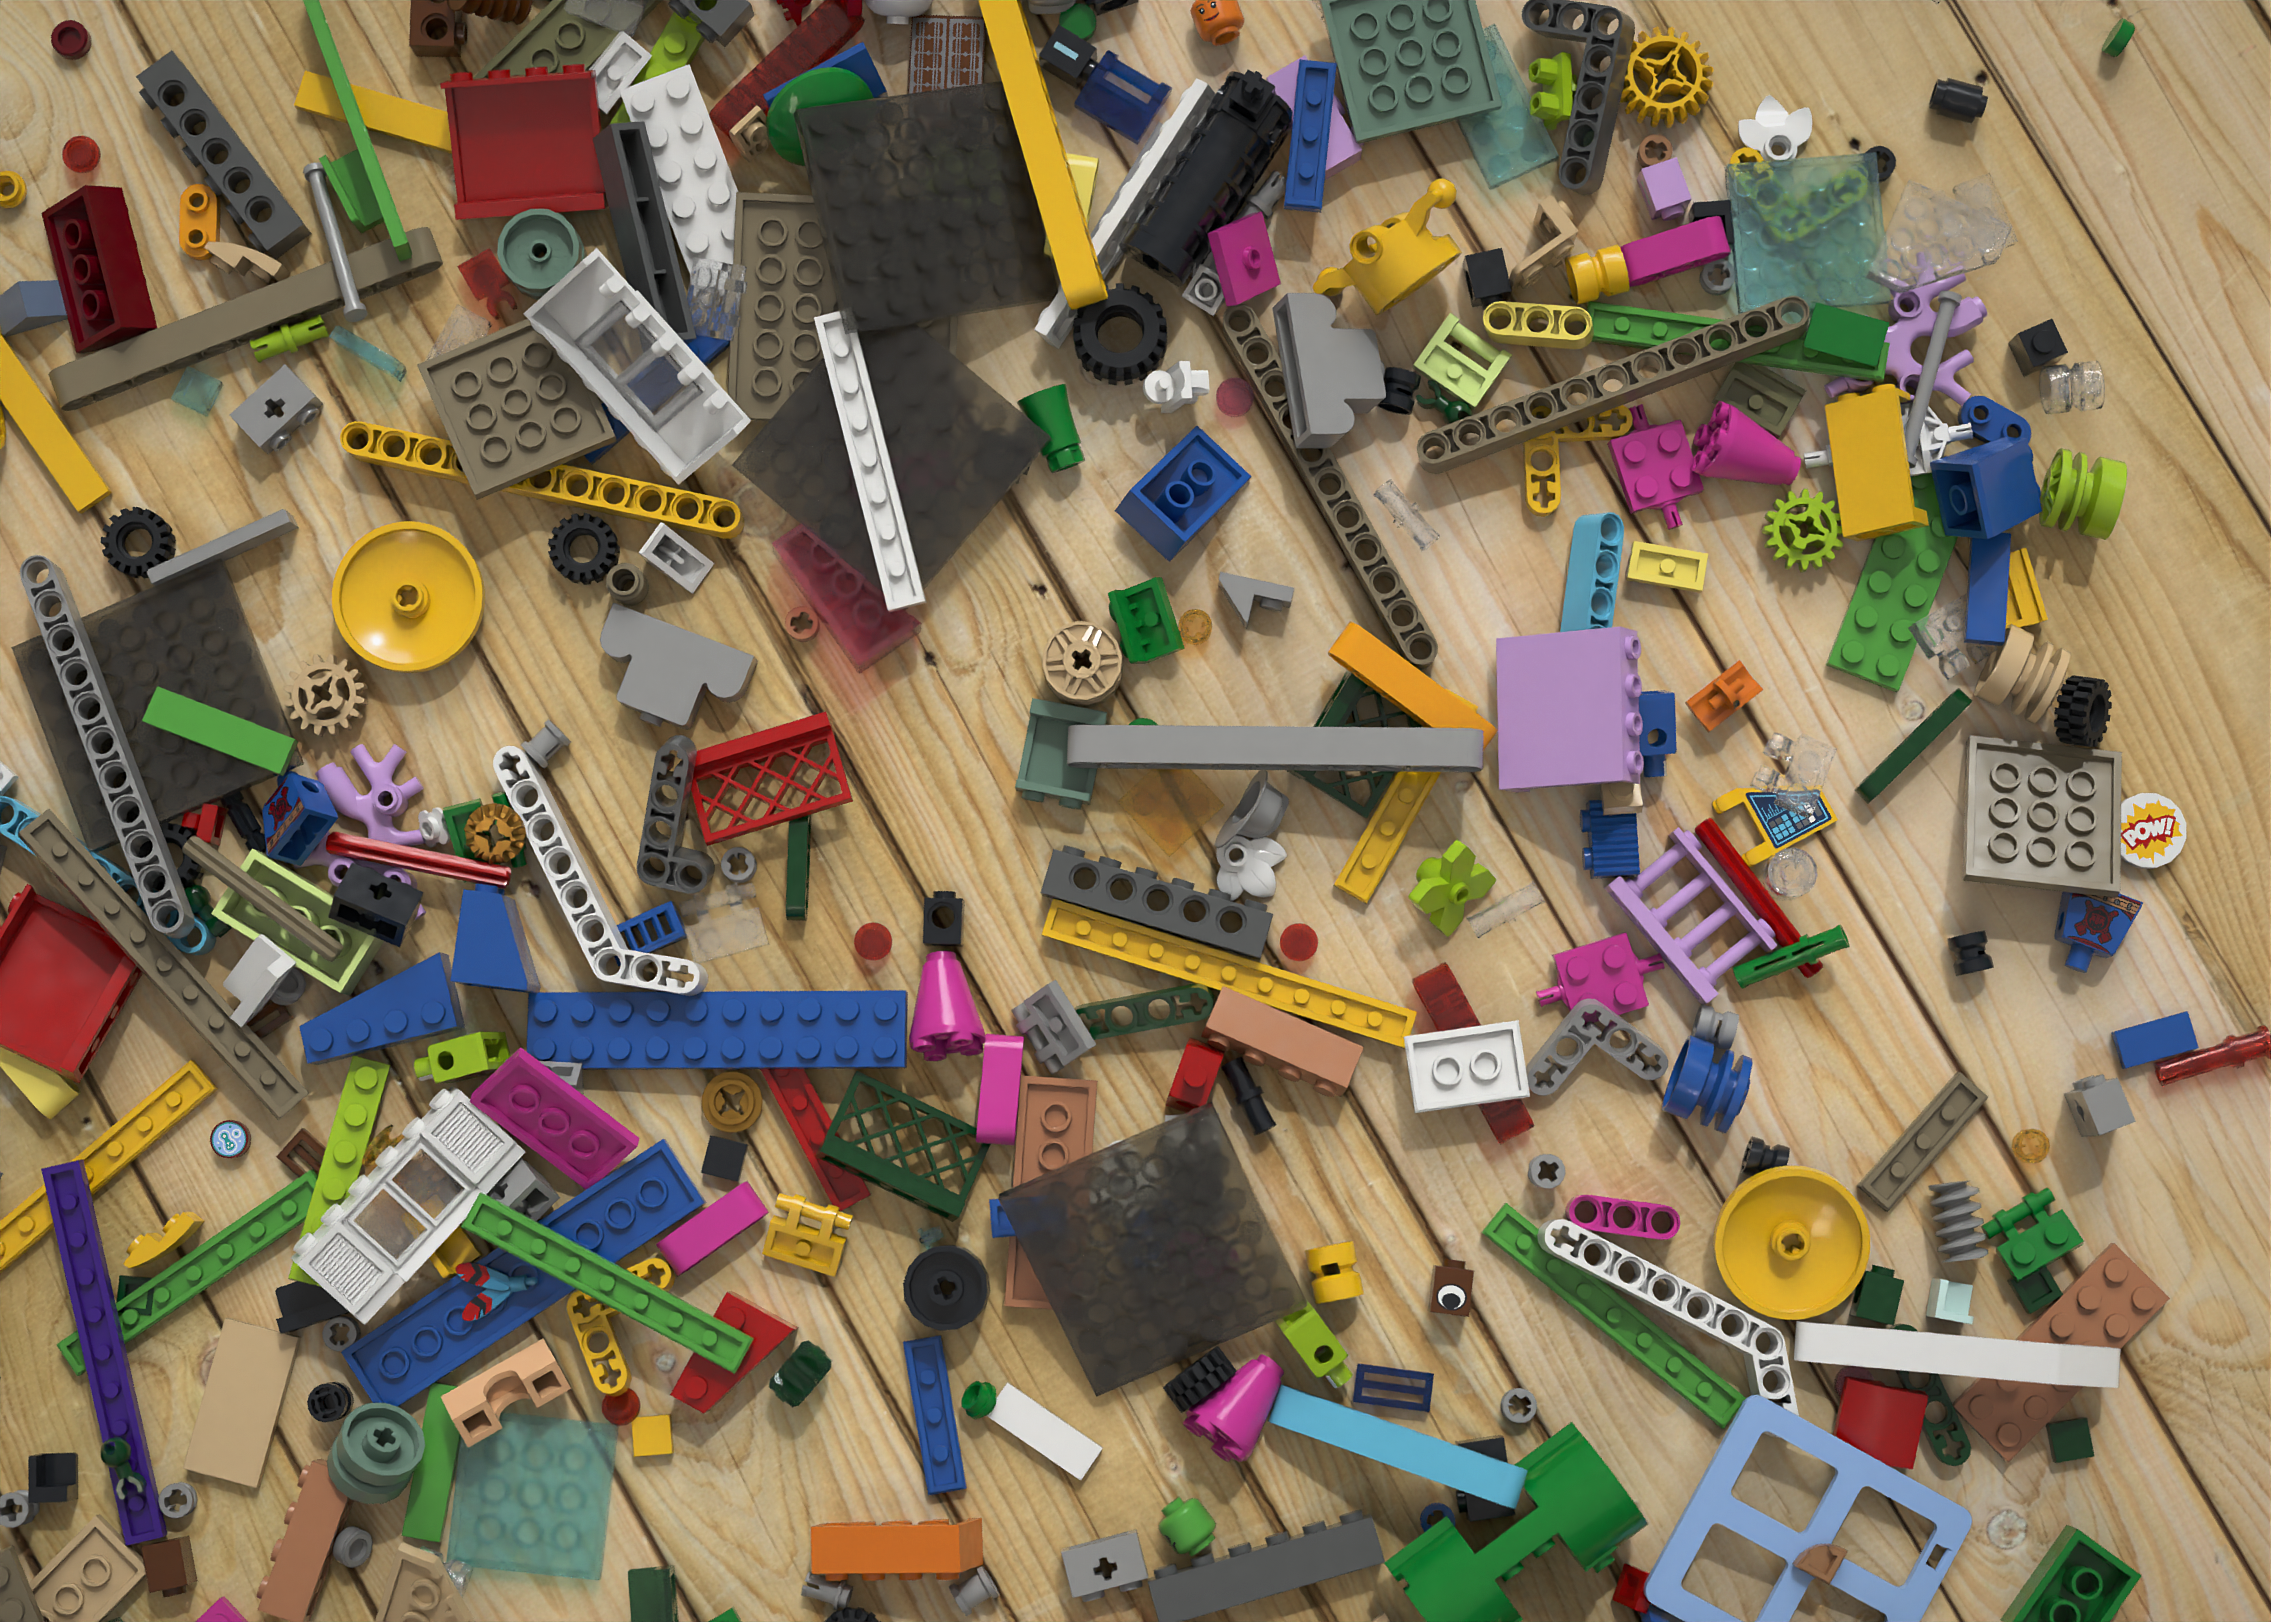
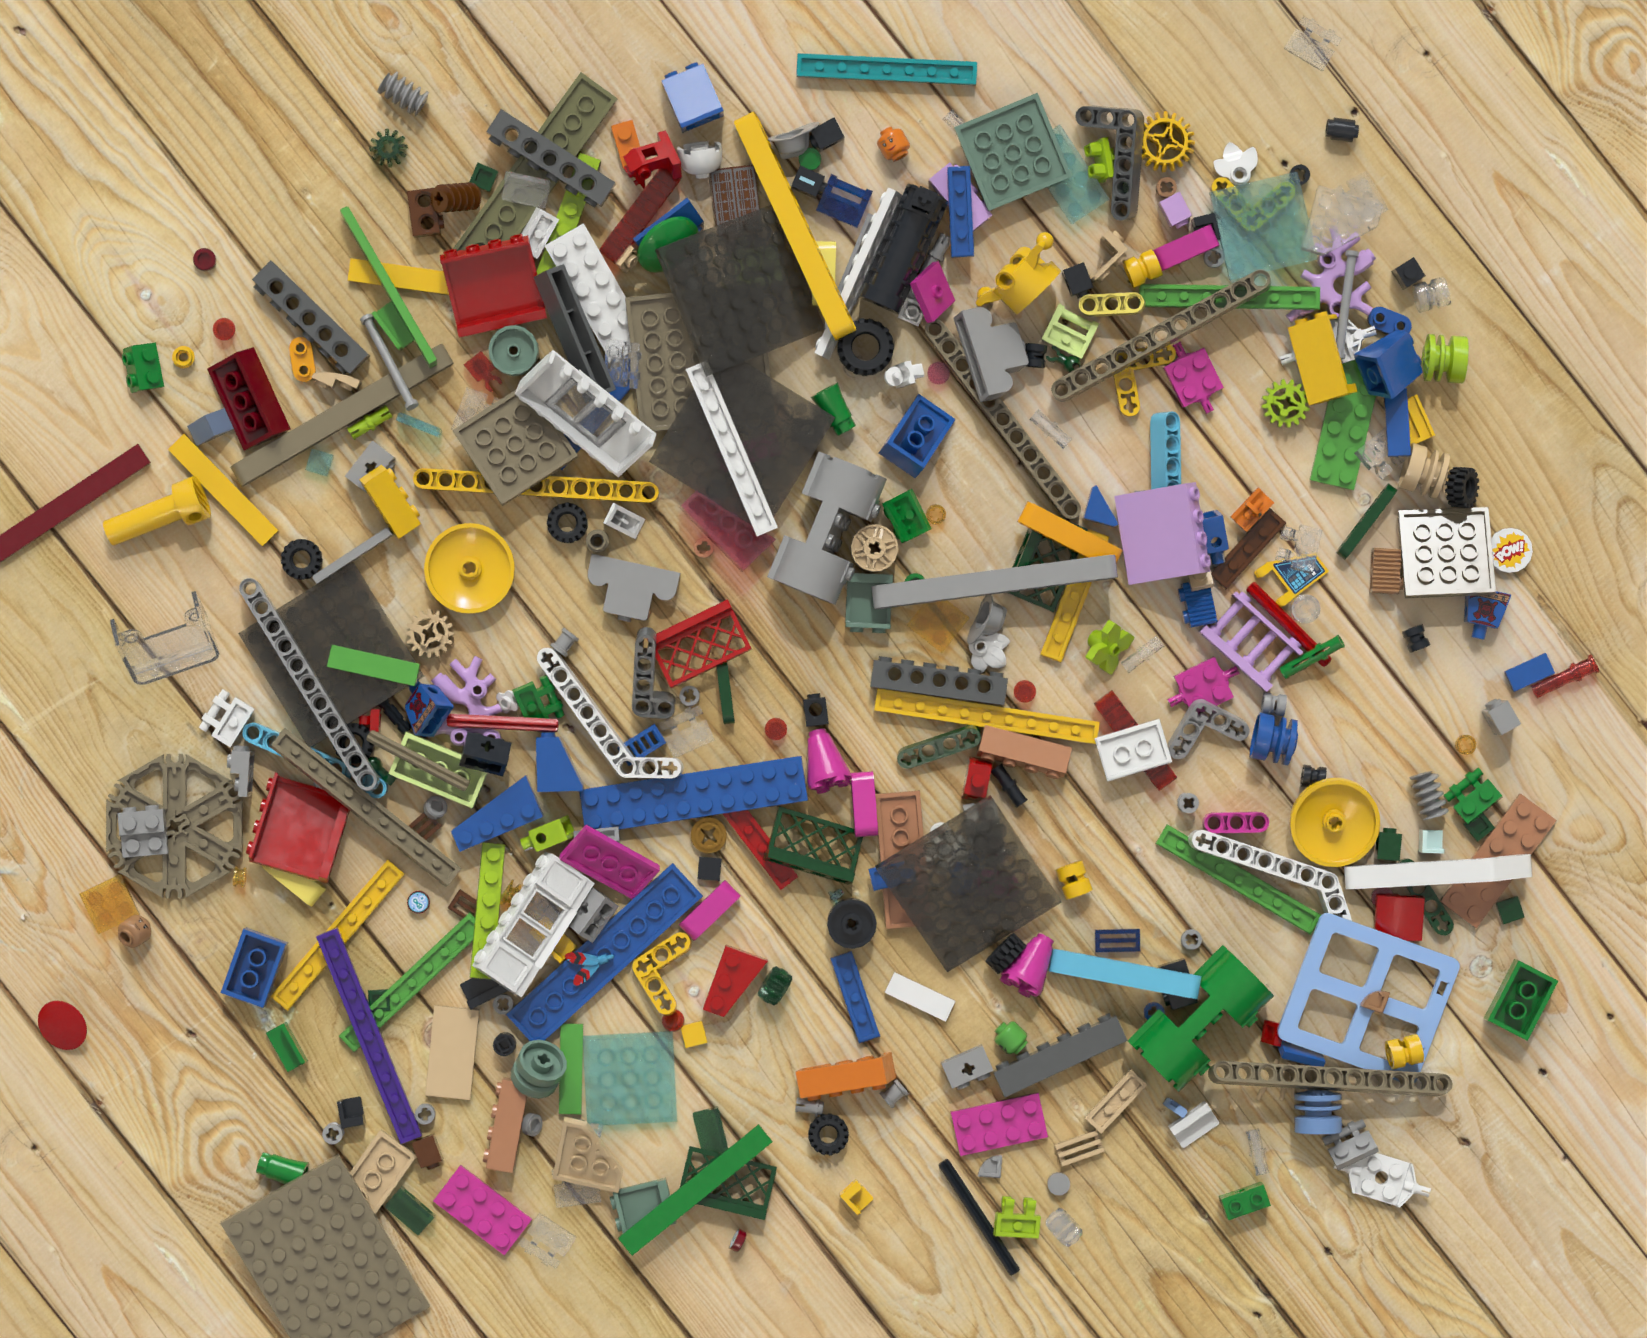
camera: 15 degrees left, 5 degrees up
(118, 1458) = (390, 1095): dark green arm -> none
(153, 1246) = (385, 971): yellow slope -> none
(257, 977) = (421, 806): white panel -> none
(297, 466) = (390, 501): none -> yellow brick
(508, 823) = (538, 693): pearl gold gear -> none
(525, 1375) = (616, 1011): light nougat arch -> none
(607, 1282) = (657, 951): bright green tile -> none
(805, 1244) = (765, 911): yellow plate -> none
(979, 1399) = (880, 984): green plate -> none
(1042, 562) = (843, 492): none -> light grey cylinder
(1053, 1027) = (890, 758): light grey plate -> none
(1242, 591) = (961, 489): light grey slope -> none
(1306, 1334) = (1064, 917): lime torso -> none
(1451, 1288) = (1142, 878): reddish brown brick -> none
(1466, 659) = (1098, 510): none -> blue slope
(1667, 566) = (1208, 437): light yellow plate -> none
(1707, 761) = (1248, 548): none -> reddish brown tile
(1742, 450) = (1242, 362): dark pink cone -> none
(1761, 396) = (1248, 327): olive plate -> none
(1845, 334) = (1293, 285): green panel -> none
(1922, 1141) = (1403, 751): dark tan tile -> none
(1934, 833) = (1385, 571): none -> medium nougat brick
(2118, 37) = (1432, 77): green tile -> none

